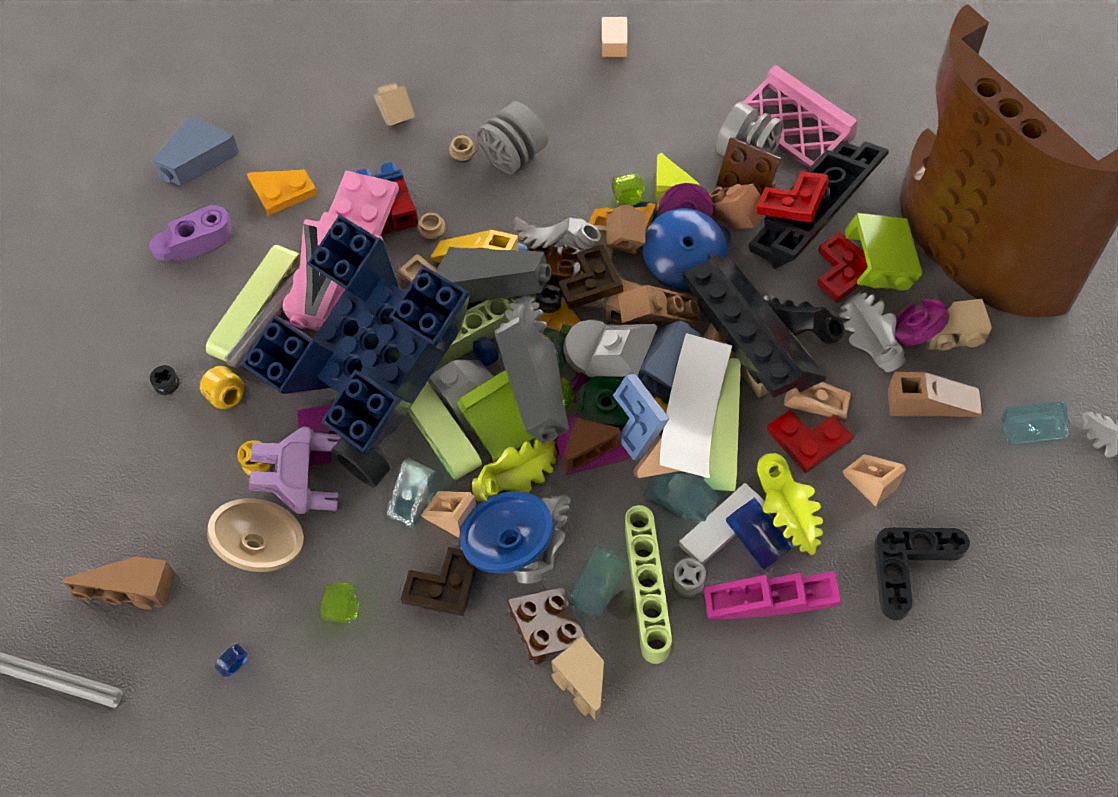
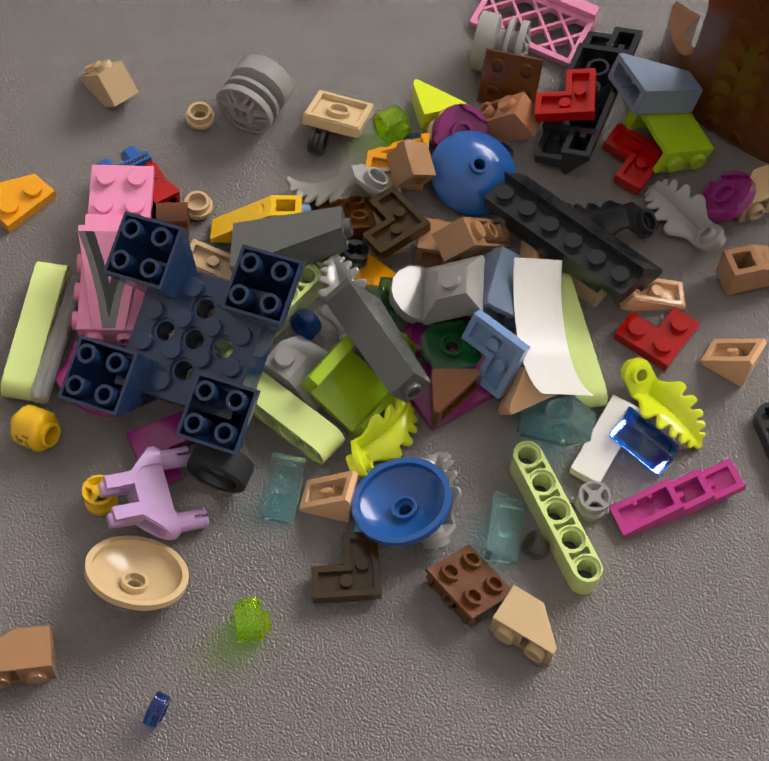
camera: 25 degrees left, 0 degrees up
(402, 235) = (174, 213): none -> reddish brown piece
(556, 191) = (317, 141): none -> black bush
(581, 171) = (338, 114): none -> tan tile
(878, 203) = (653, 86): none -> sand blue slope

